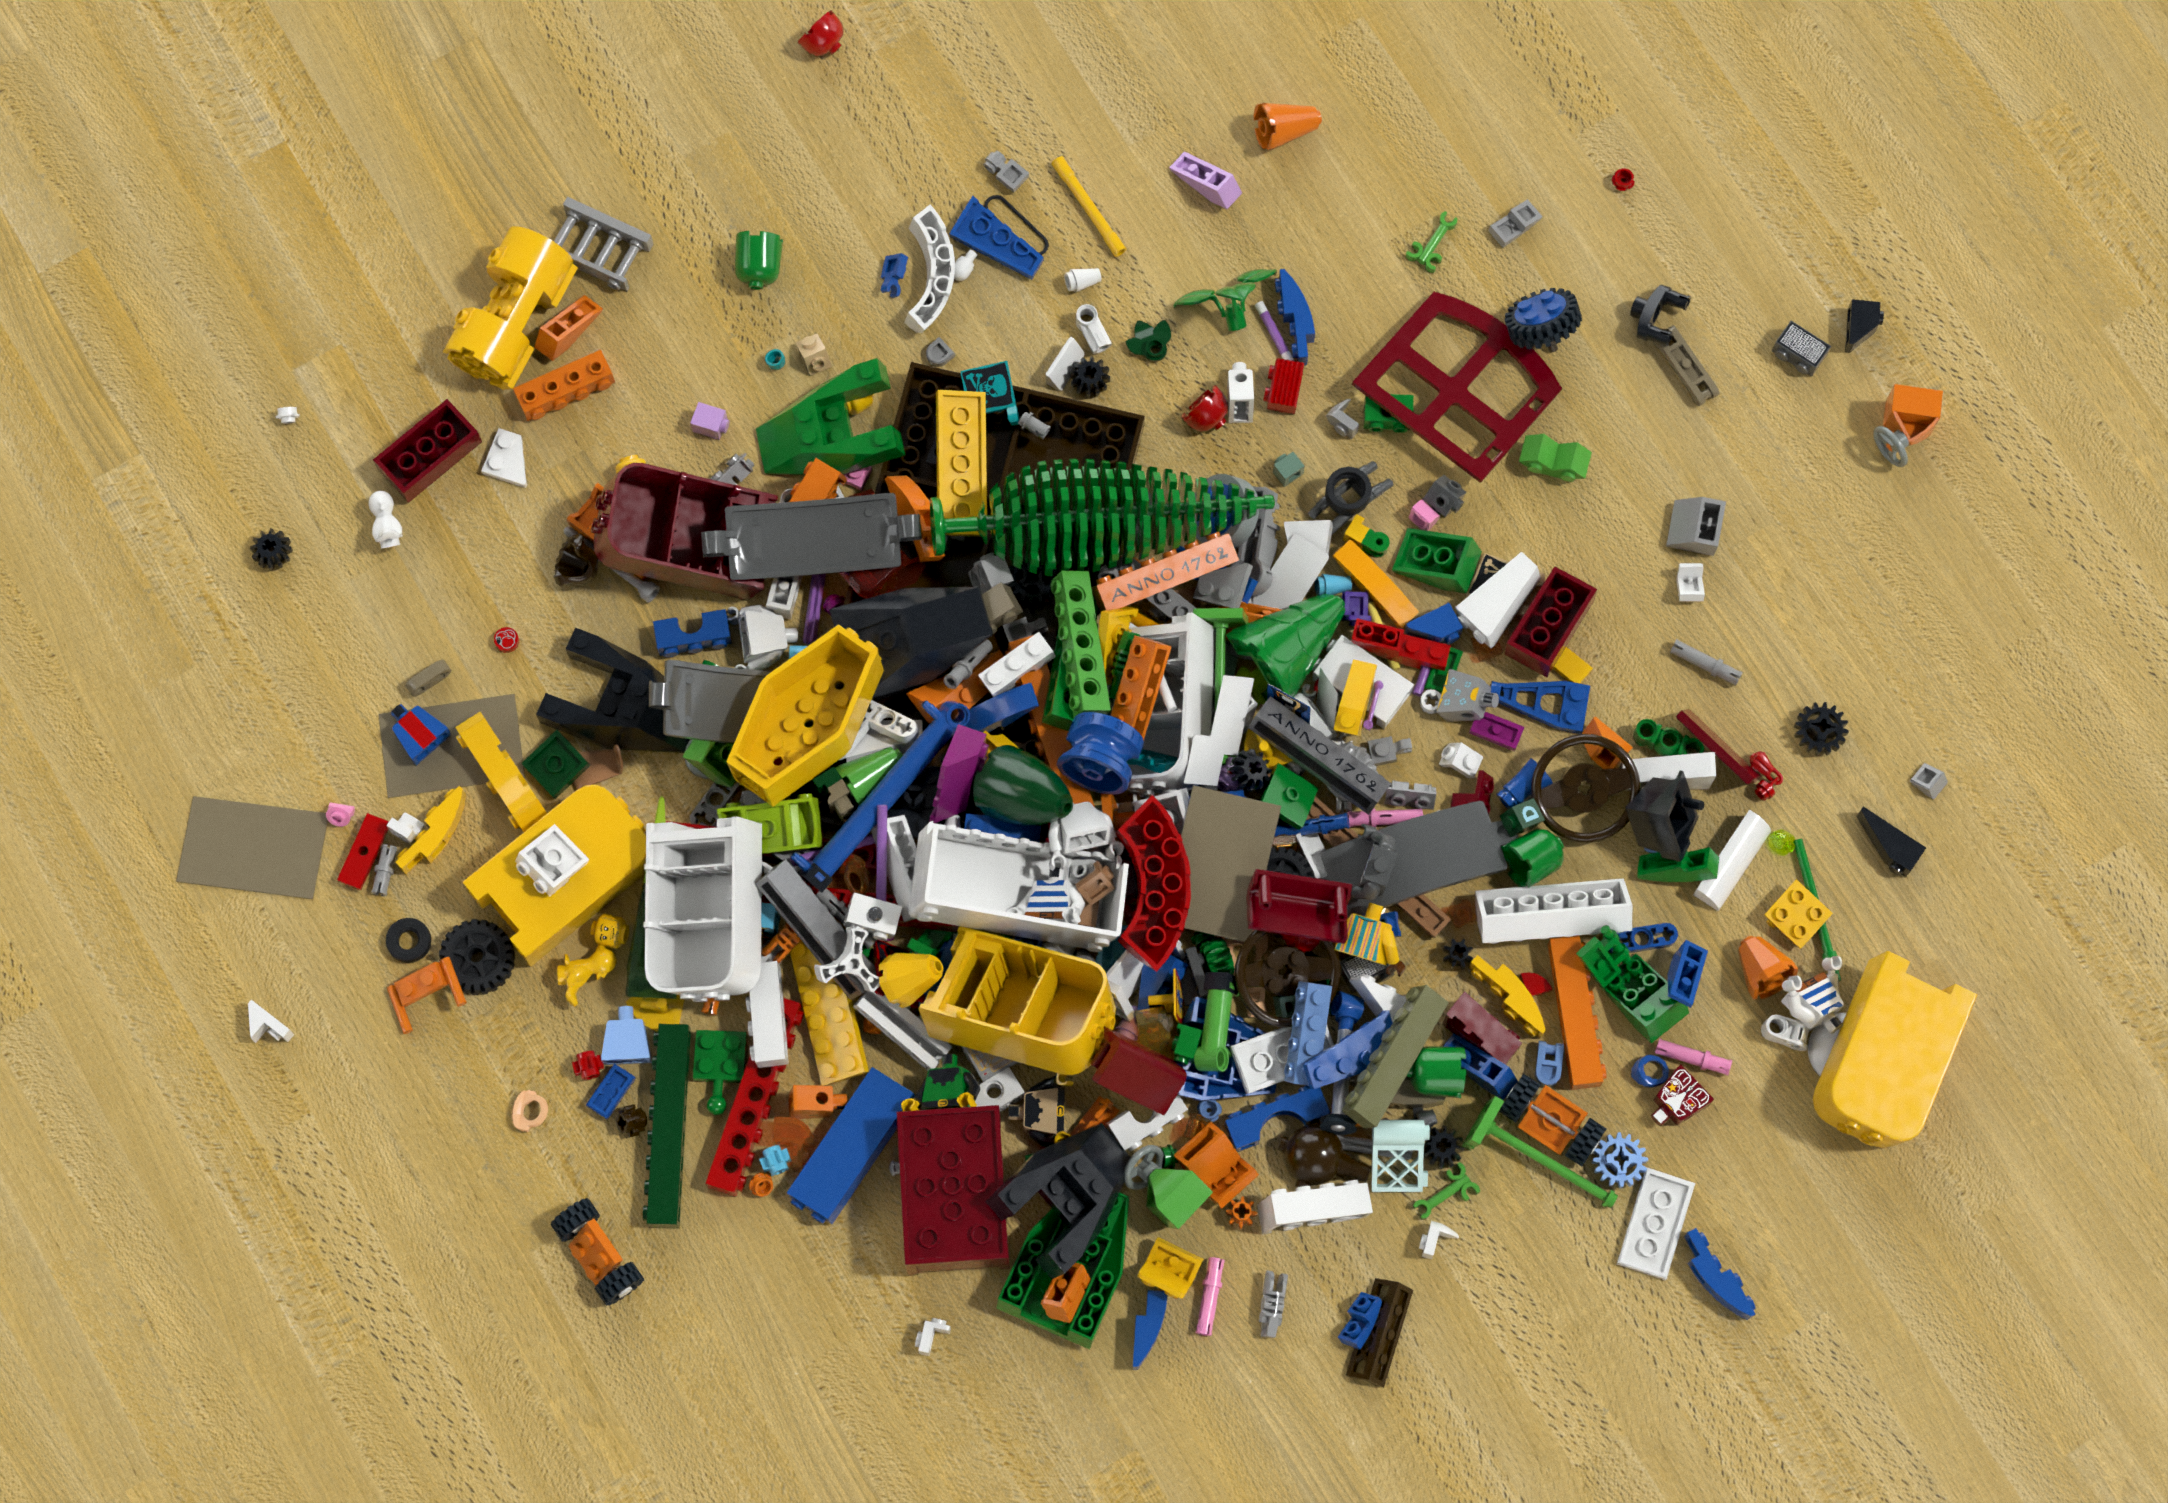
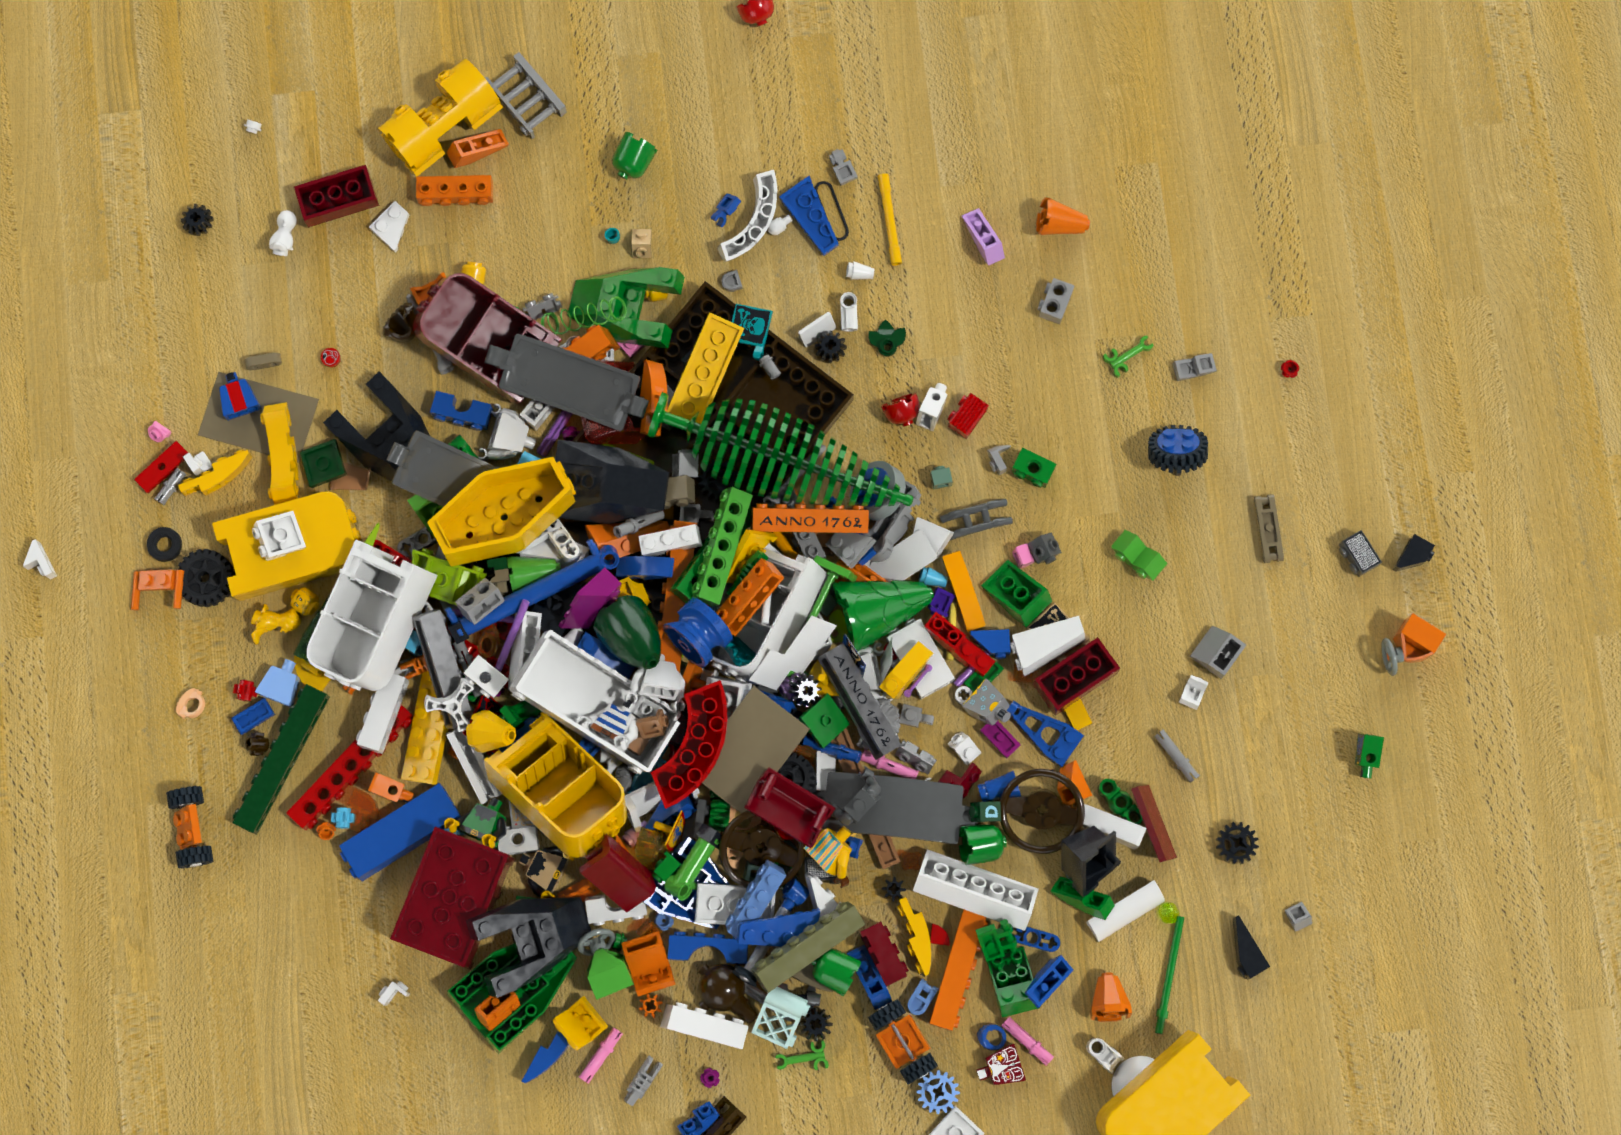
camera: 25 degrees right, 5 degrees up
(252, 847) = (89, 429): dark tan piece -> none
(709, 421) = (544, 260): lavender brick -> none
(719, 1059) = (339, 728): green plate -> none
(828, 828) = (479, 601): none -> light grey brick
(837, 429) = (594, 322): none -> bright green piece
(1234, 312) = (957, 333): green plant -> none
(1273, 331) = (979, 371): medium lavender bar -> none
(1296, 312) = (1002, 361): blue slope -> none
(1327, 216) = (1058, 301): none -> light grey brick
(1349, 1271) = (715, 1078): none -> magenta plate
(1350, 473) = (975, 500): black tyre -> none
(1366, 539) = (972, 554): leg -> none
(1429, 1241) = (773, 1087): white plate -> none
(1454, 389) = (1088, 473): dark red window -> none
(1485, 1125) = (853, 1024): bright green tile -> none
(1649, 309) = (1261, 475): black connector -> none
(1761, 763) = (1180, 847): red piece -> none
(1797, 914) = (1153, 972): yellow hinge -> none
(1817, 998) = (1135, 1041): white torso -> none
(1919, 555) = (1367, 745): none -> green torso

